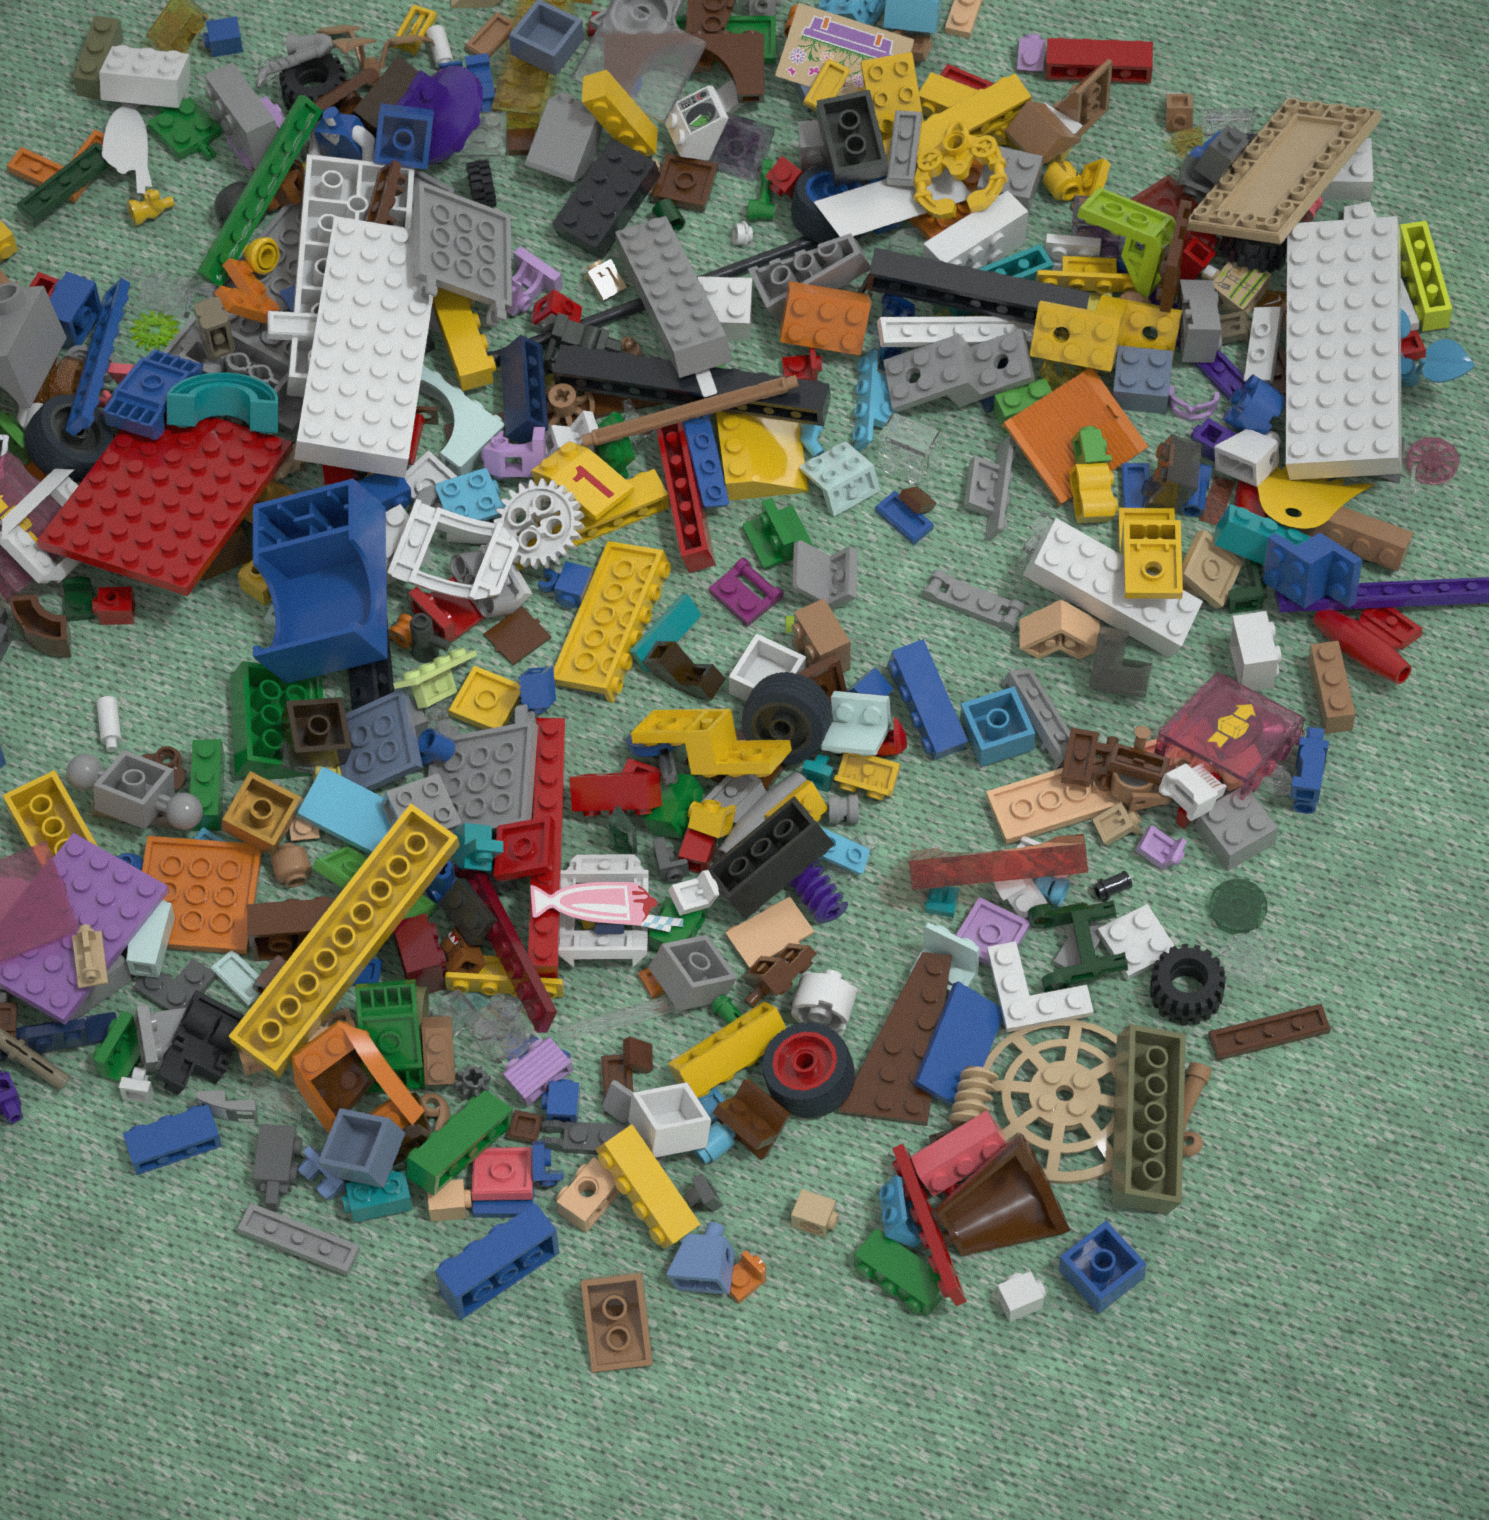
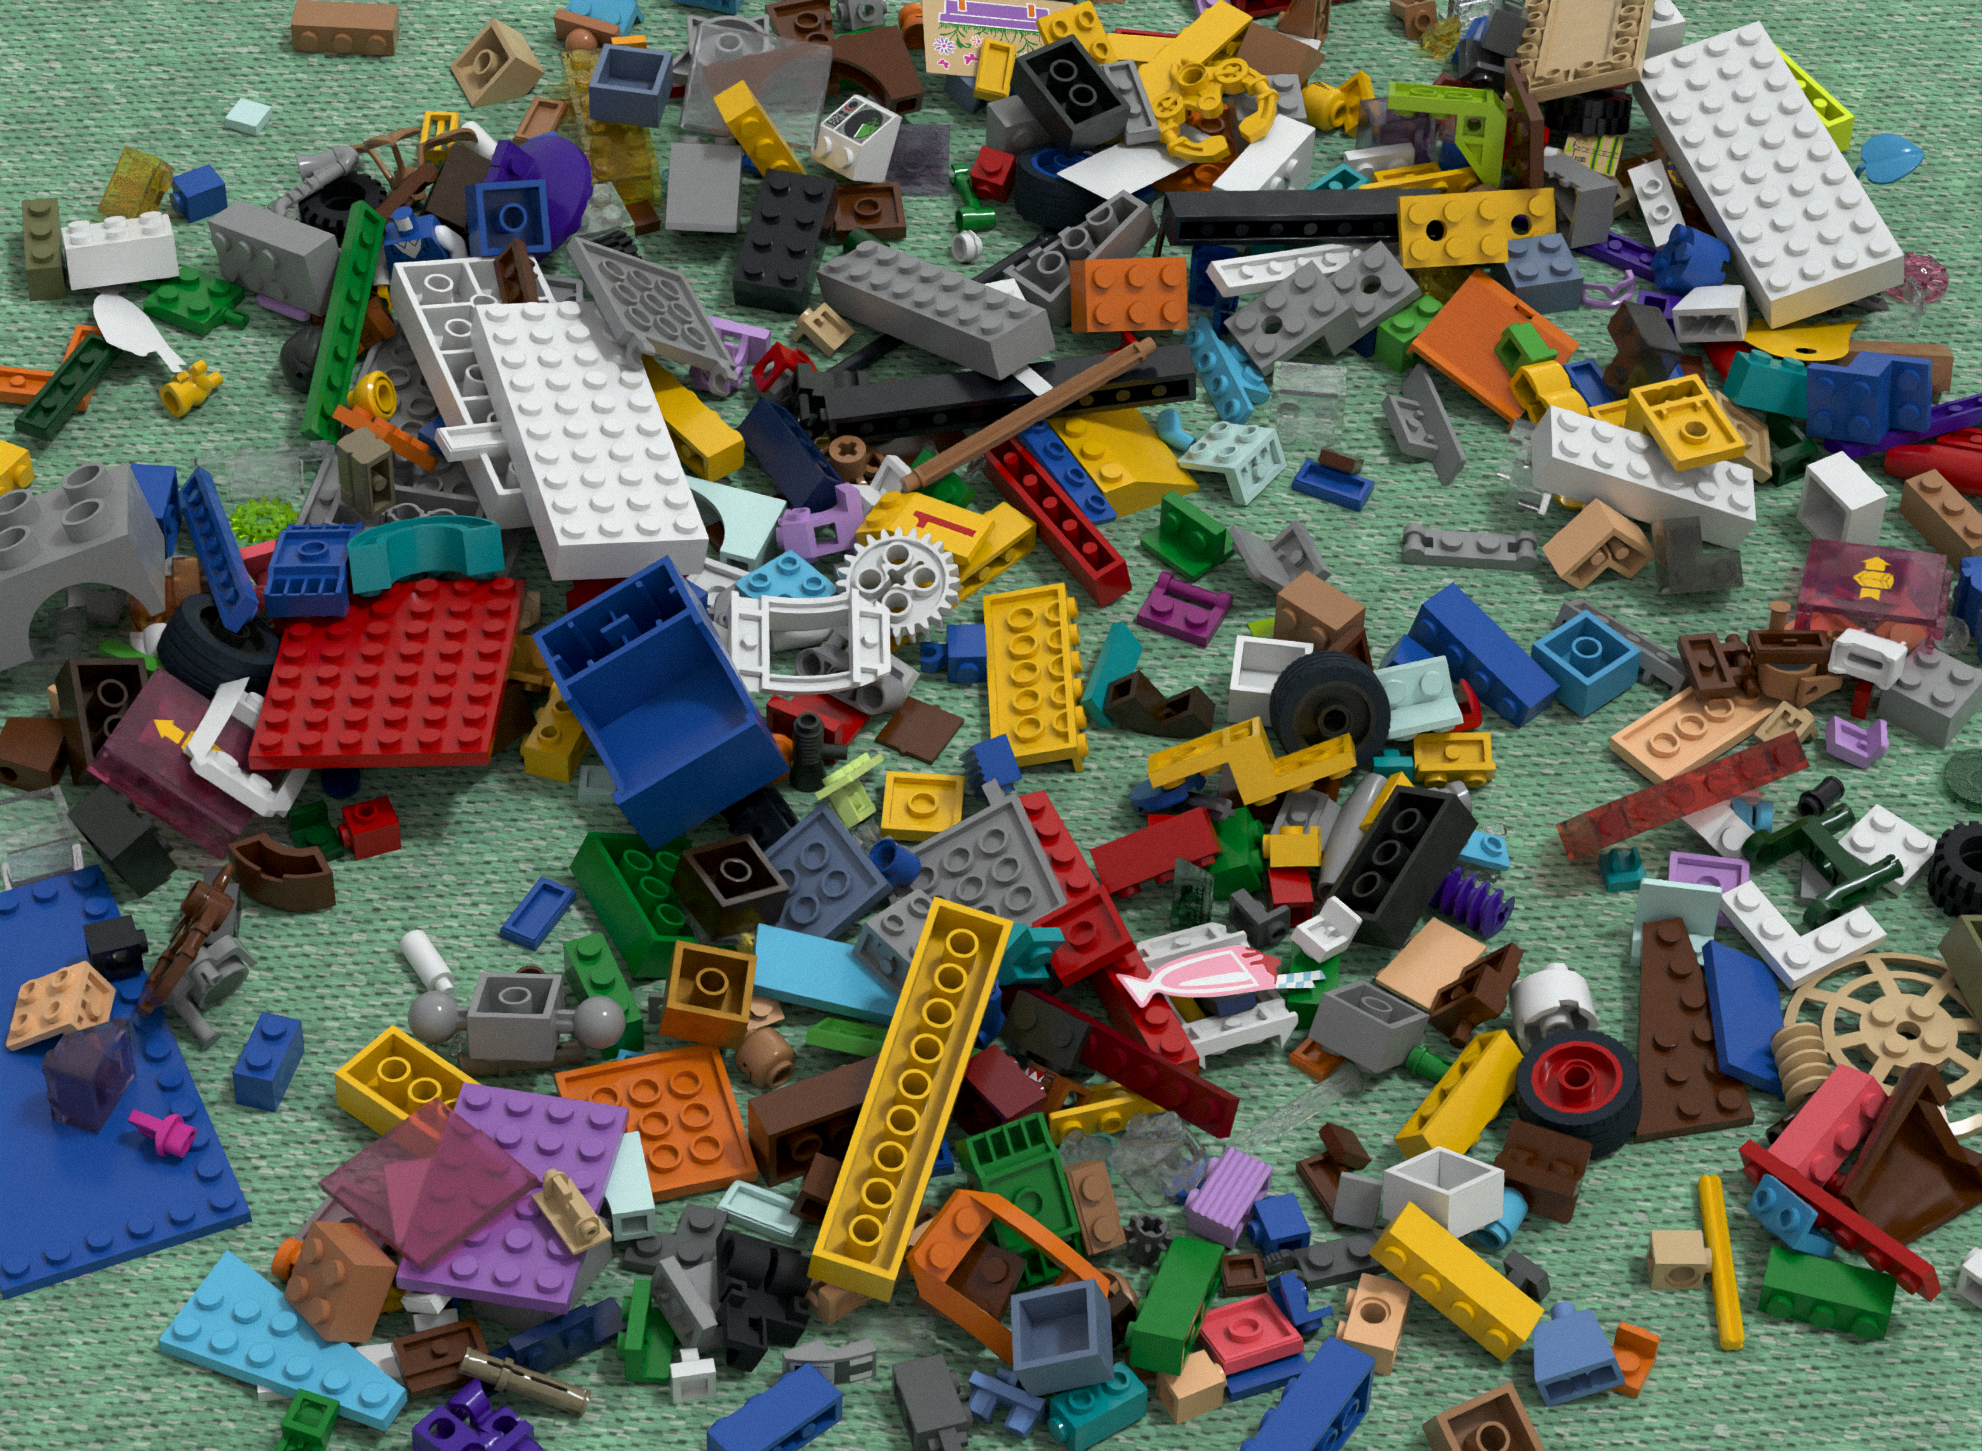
camera: 25 degrees left, 15 degrees down
(198, 704) = (538, 914): none -> blue tile
(846, 1223) = (1723, 1272): none -> yellow axle

